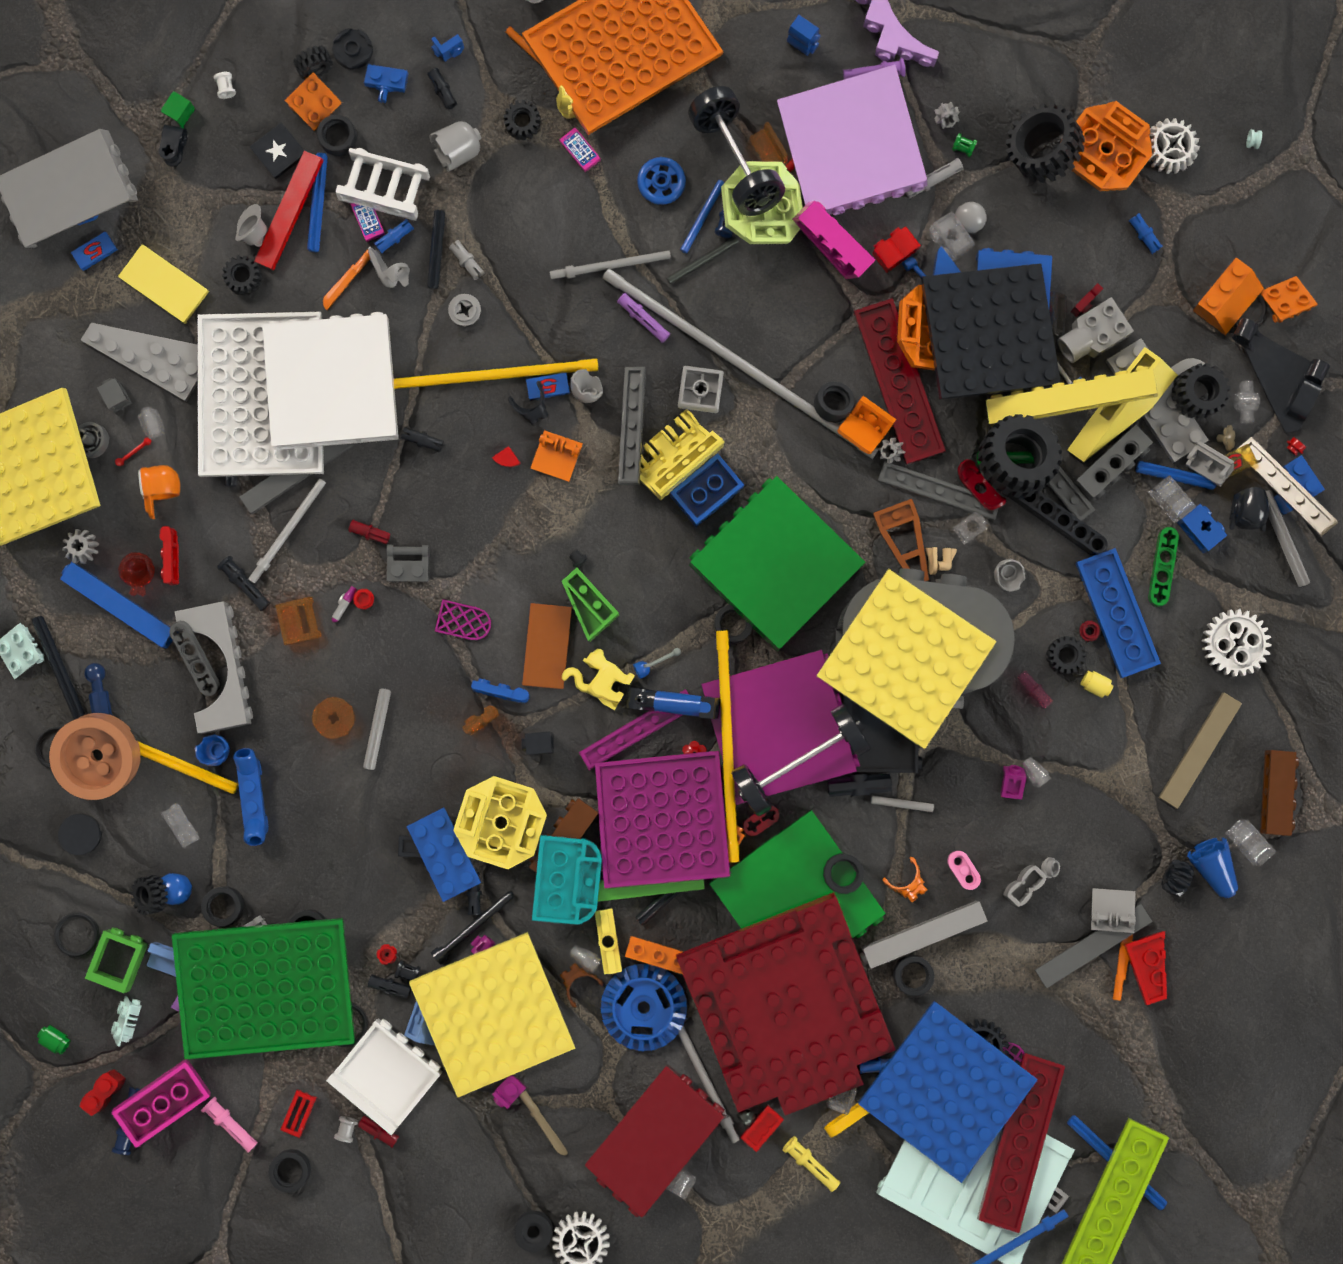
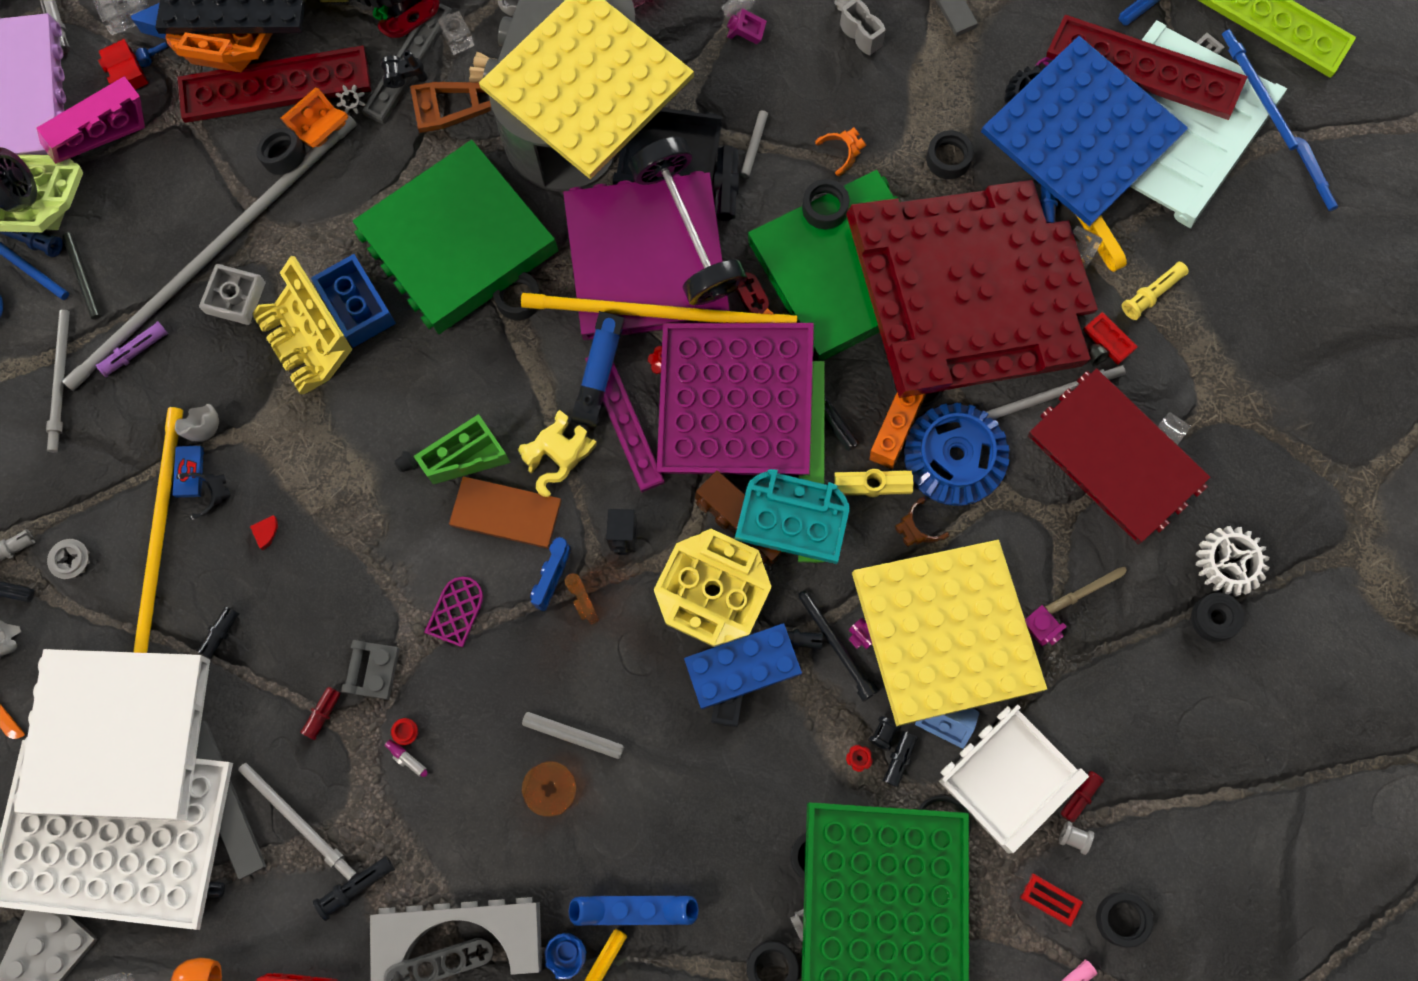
camera: 80 degrees left, 10 degrees down
(291, 622) = (416, 829): clear orange plate -> none
(556, 455) = (275, 471): orange hinge -> none
(586, 959) = (891, 513): clear cone -> none
(632, 426) = (258, 375): dark grey tile -> none
(643, 668) = (551, 403): hinge -> none
(922, 485) = (402, 69): none -> black piece
(923, 934) = (904, 135): light grey brick -> none
(964, 869) = (835, 88): bright pink plate -> none

